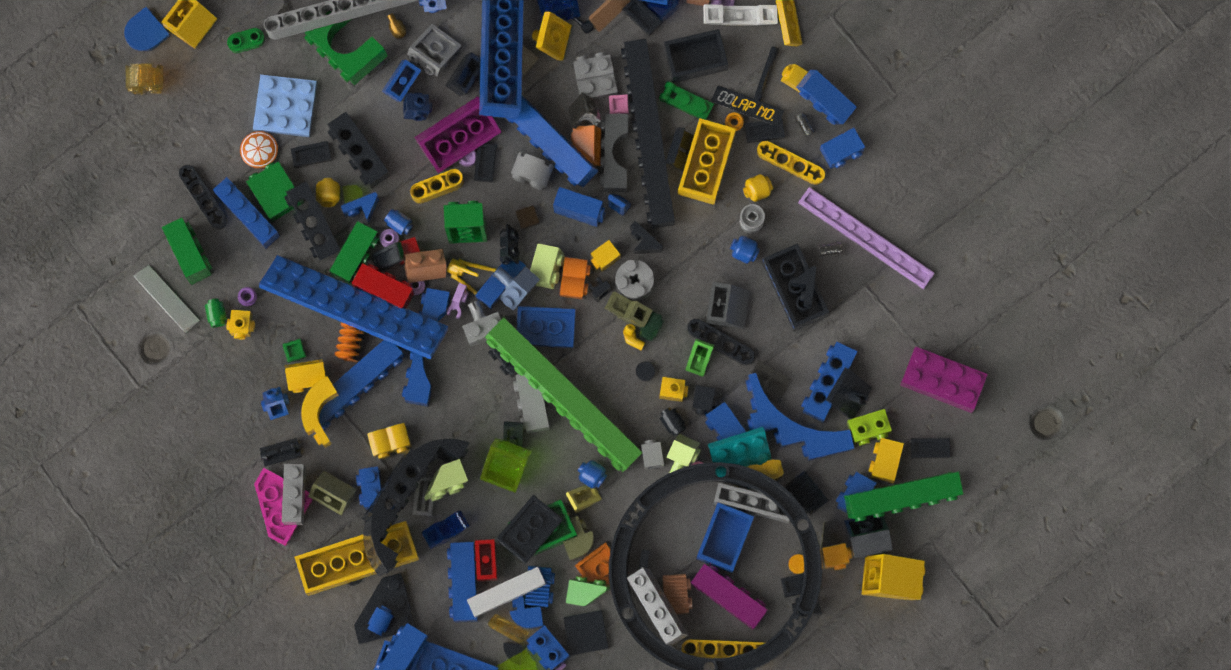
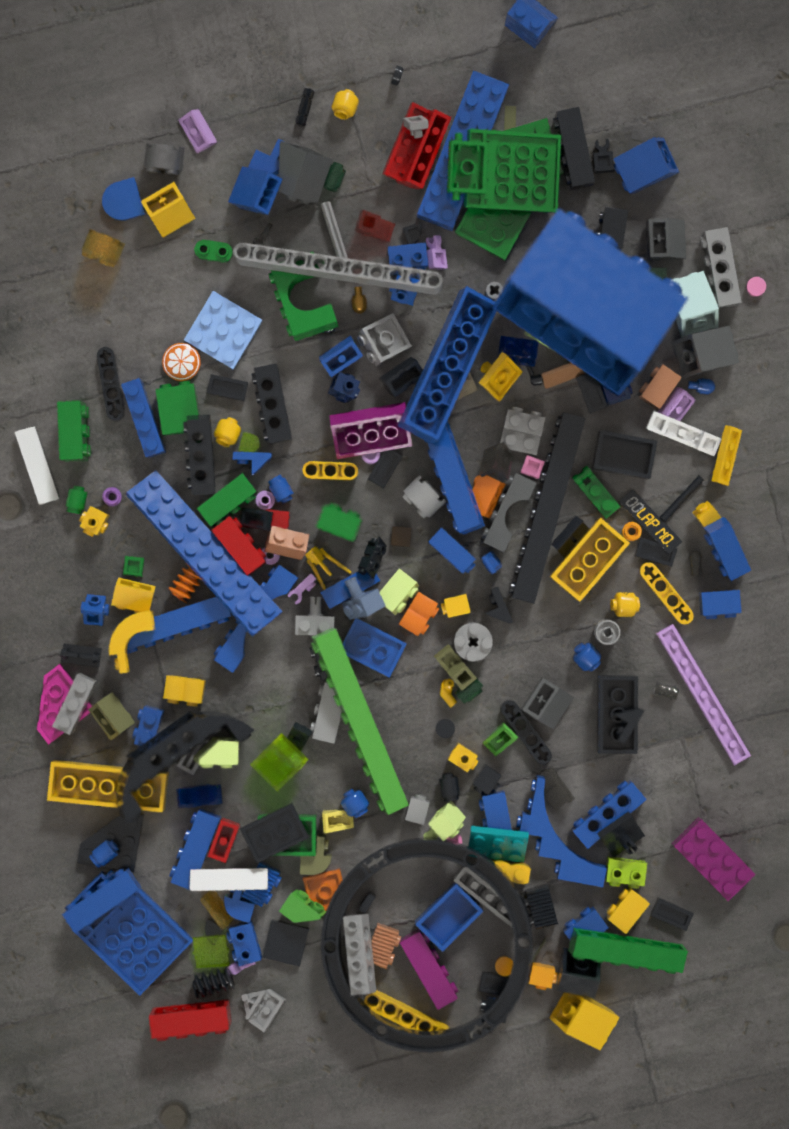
camera: 20 degrees right, 10 degrees up
(600, 291) = (437, 636): black tile -> none

